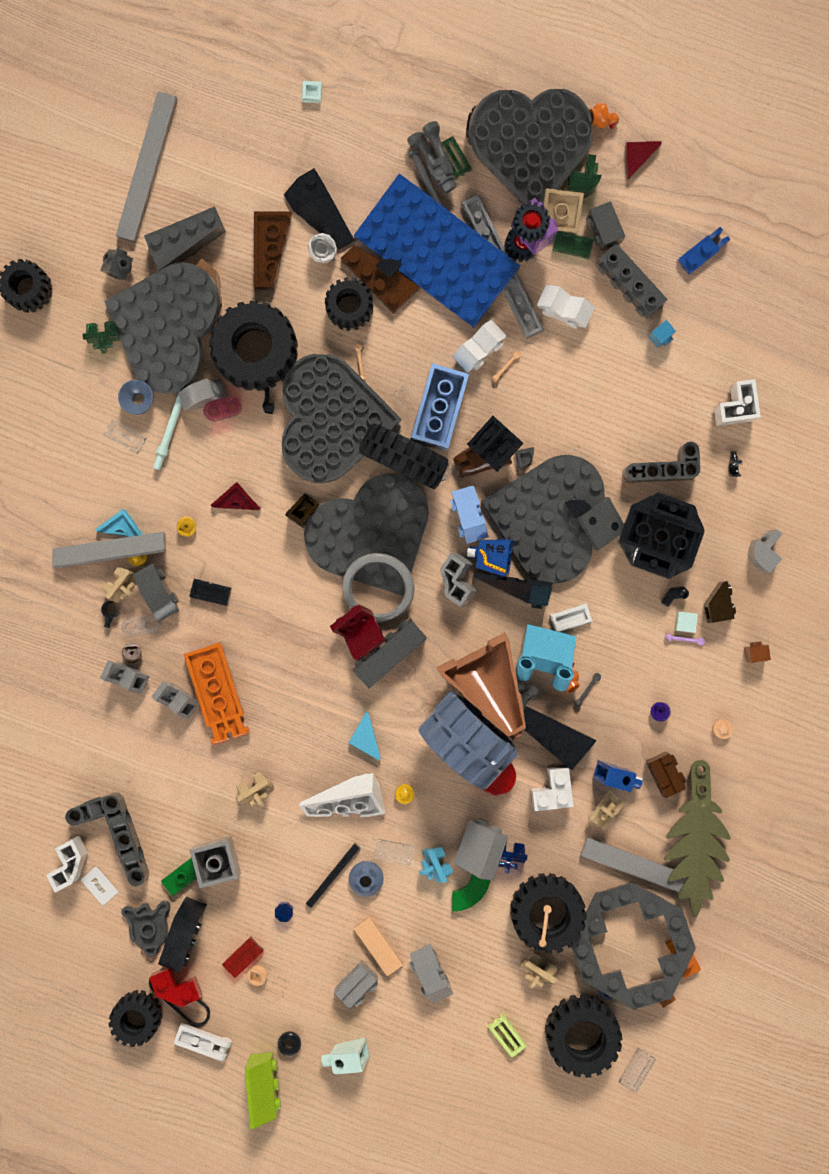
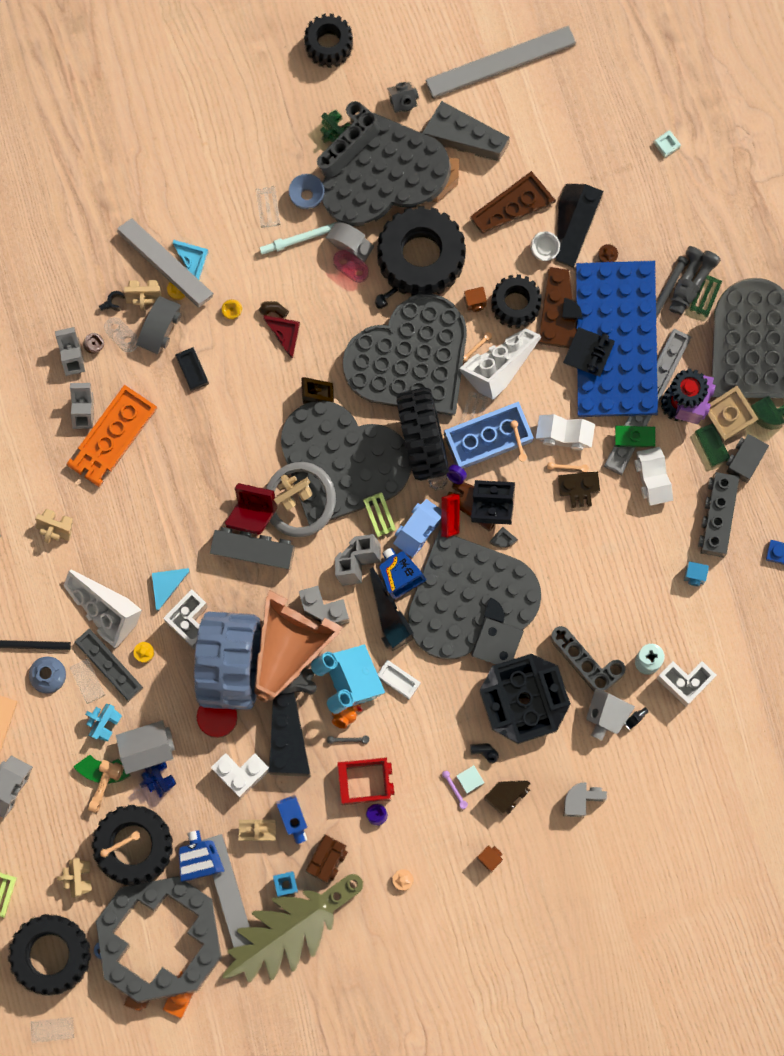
camera: 55 degrees right, 10 degrees down
(124, 363) = (333, 161): none -> dark grey beam
(207, 494) = (273, 306): none -> dark brown arm
(323, 334) = (475, 299): none -> dark orange plate
(364, 205) = (608, 253): none -> reddish brown tile
(367, 590) = (286, 498): none -> tan hips
(388, 360) = (496, 368): none -> white wedge
(393, 827) = (108, 664): none -> dark grey tile
(403, 746) = (183, 617): none -> white brick
(432, 279) = (589, 351): none -> black hinge
(450, 541) = (385, 530): none -> yellowish green tile
(452, 454) = (456, 474): none -> dark purple tile
(477, 394) = (522, 457): none -> light nougat hinge
(478, 483) = (450, 515): none -> red tile
(478, 888) = (109, 771): none -> light nougat brick
(484, 631) = (314, 607): none -> light grey brick
(523, 297) = (635, 436): none -> green plate
(528, 370) = (579, 487): none -> dark brown hinge
(596, 870) = (198, 858): none -> blue torso
(649, 688) = (343, 779): none -> red window
(667, 822) = (279, 879): none -> dark azure plate
(702, 419) = (654, 653): none -> light aqua piece
(719, 482) = (607, 713): none -> light grey torso

